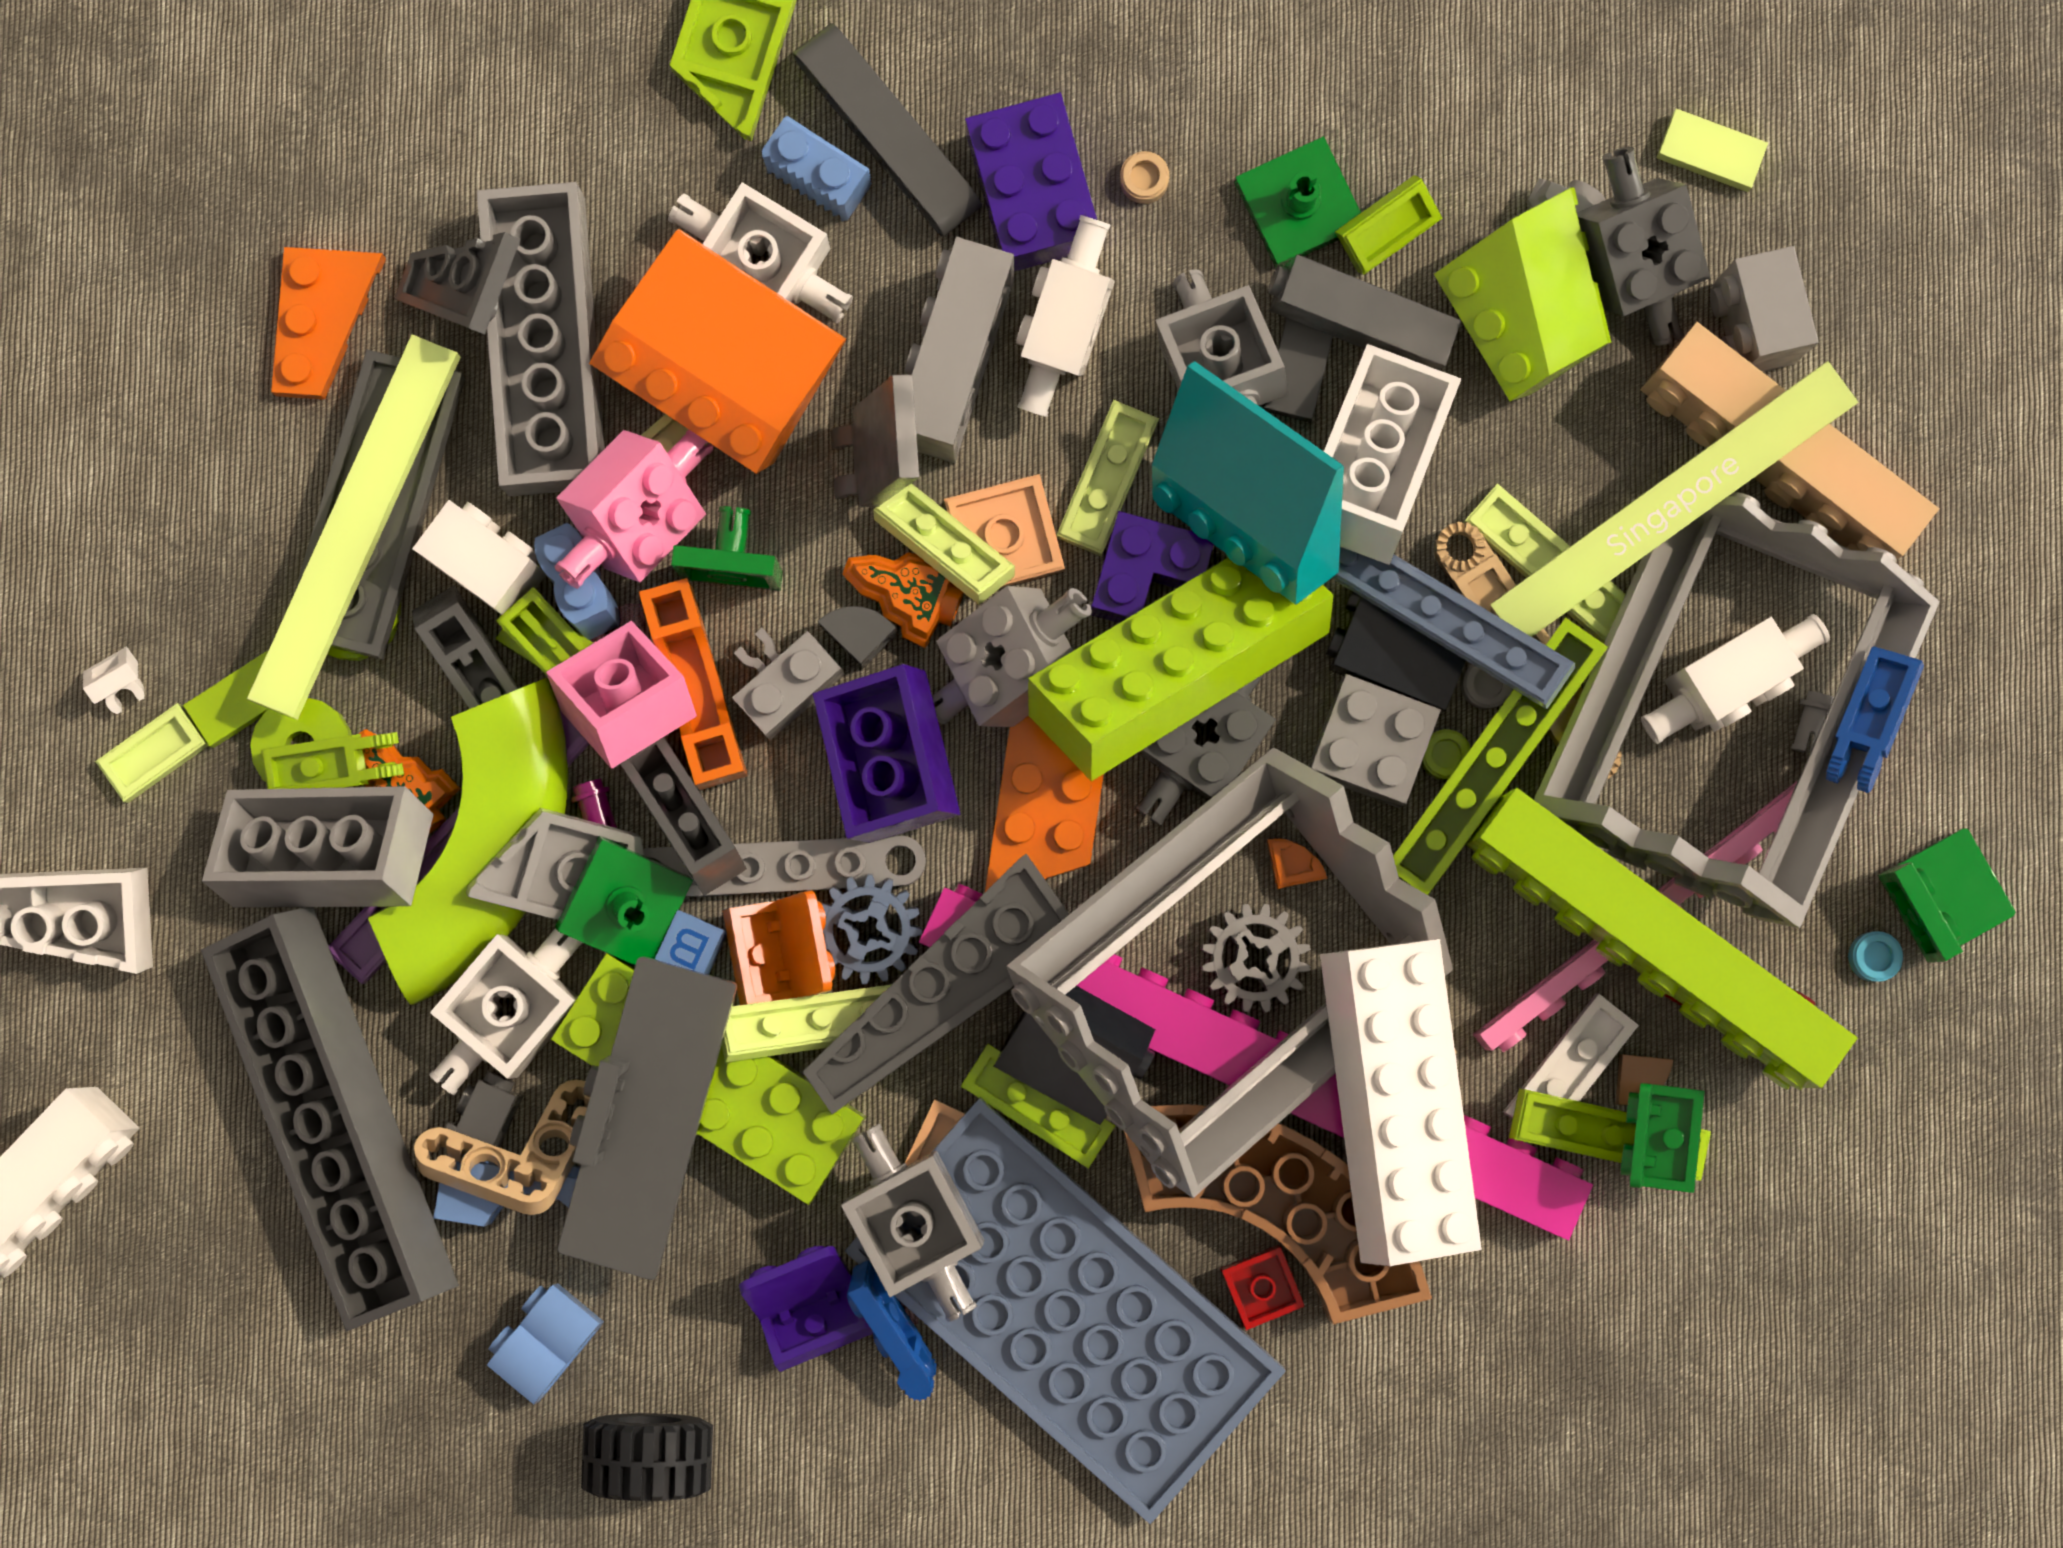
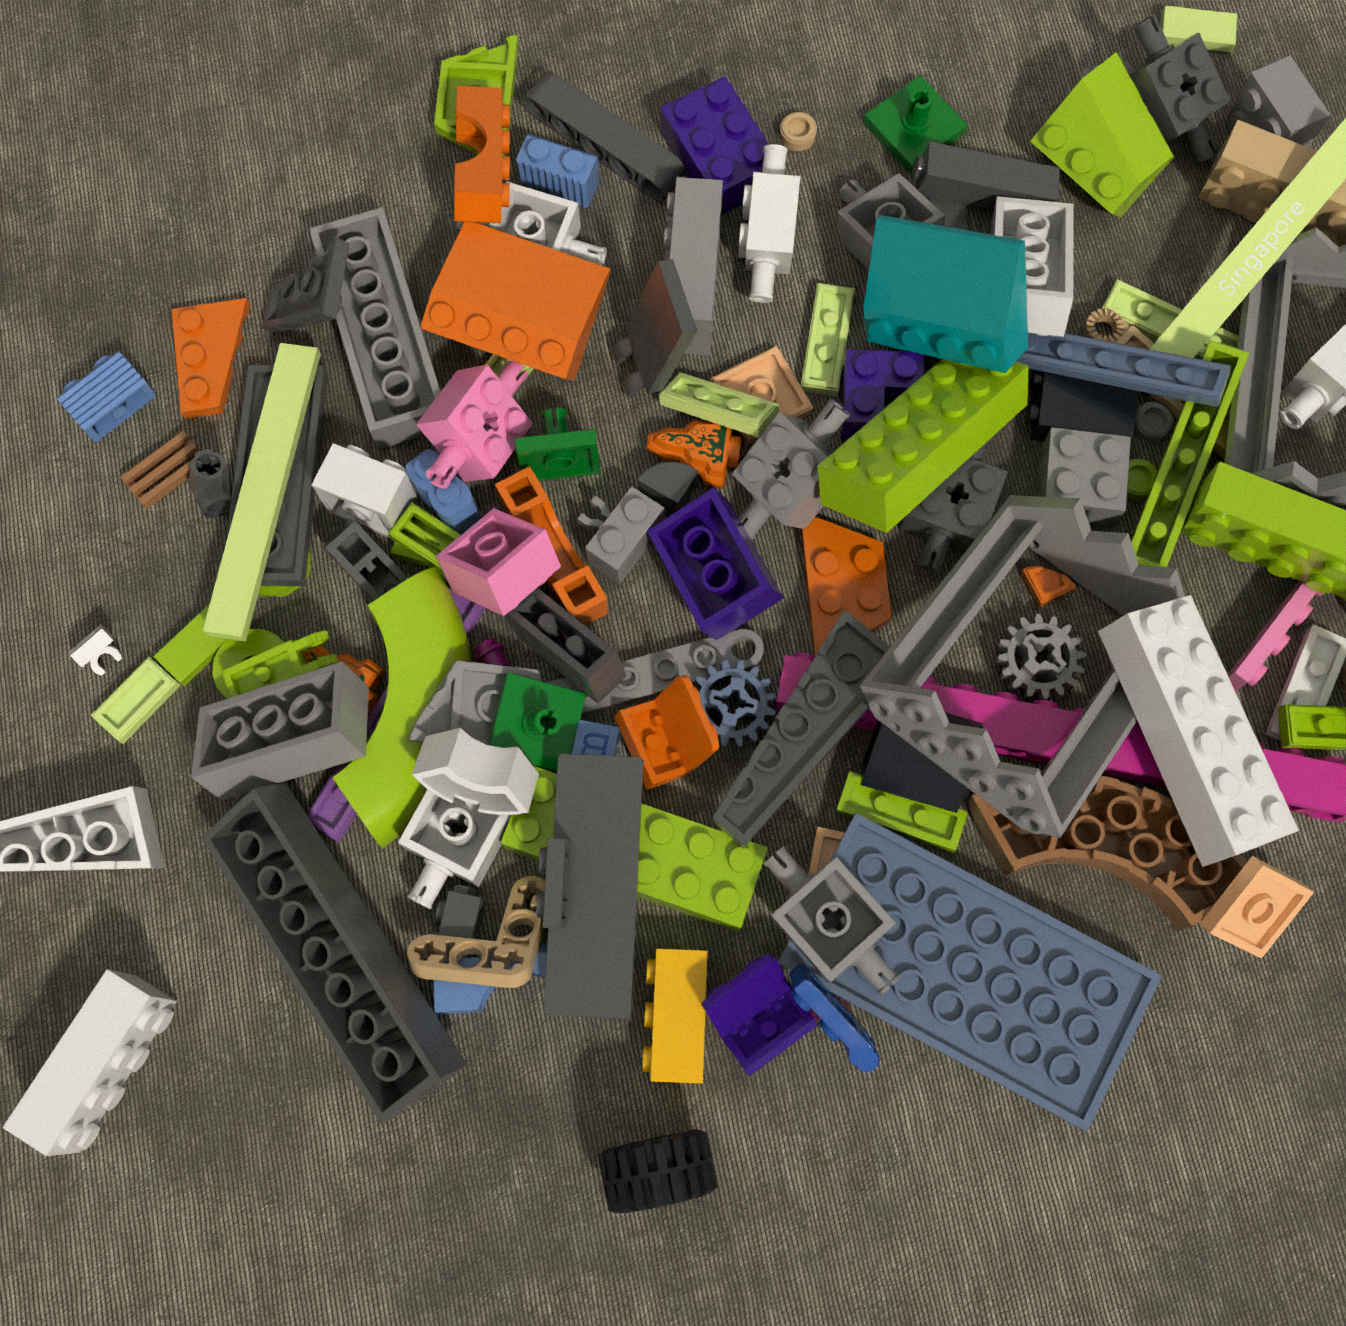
camera: 10 degrees left, 10 degrees down
(180, 348) = (106, 396): none -> medium blue brick
(234, 443) = (158, 466): none -> medium nougat tile
(291, 504) = (210, 483): none -> dark grey piece
(544, 1342) = (548, 1097): medium blue brick -> none
(554, 963) = (478, 773): none -> white brick
(702, 188) = (478, 181): none -> orange arch
(710, 1295) = (676, 1016): none -> yellow brick
(793, 1023) = (691, 786): yellowish green tile -> none
(1262, 1287) = (1119, 915): red piece -> none
(1389, 224) = (985, 120): lime tile -> none
(1416, 1320) = (1256, 907): none -> light nougat tile

